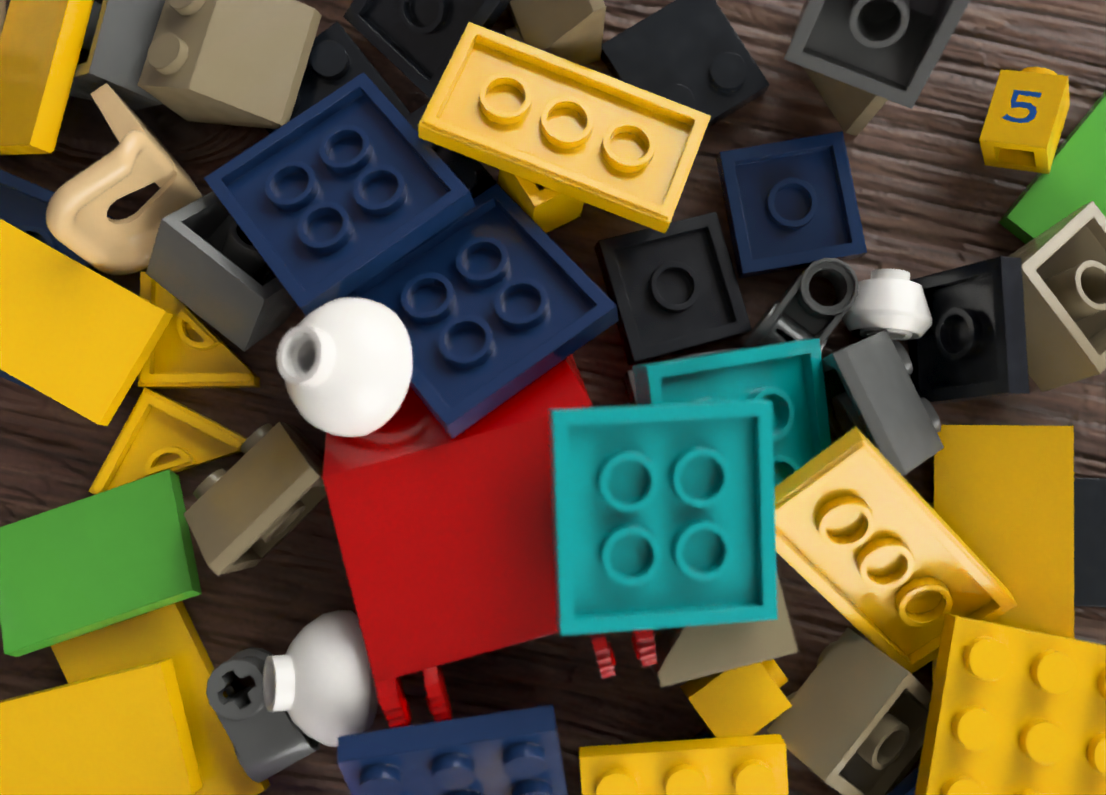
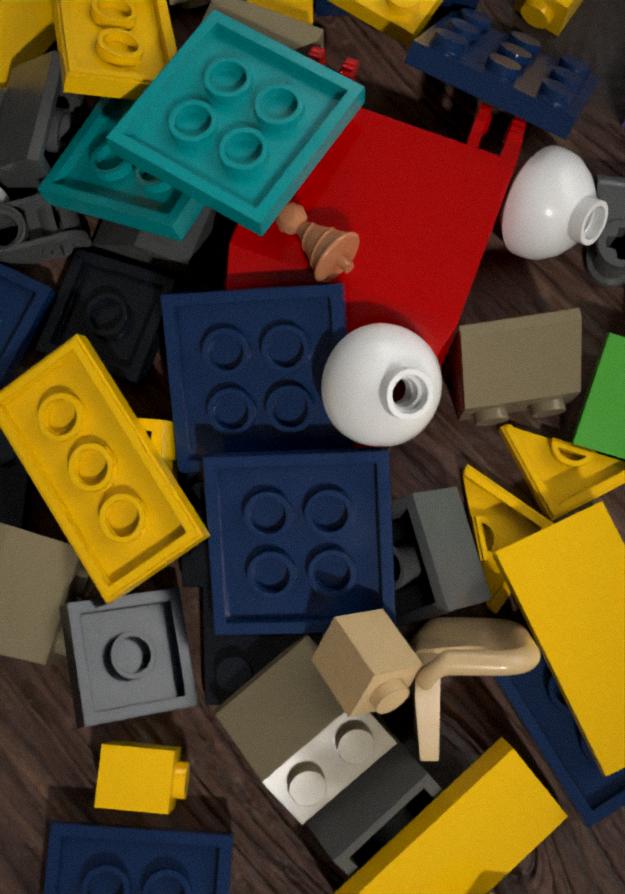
camera: 140 degrees left, 5 degrees down
(197, 120) = (366, 662): none -> tan brick
(494, 454) = (326, 248): none -> nougat piece

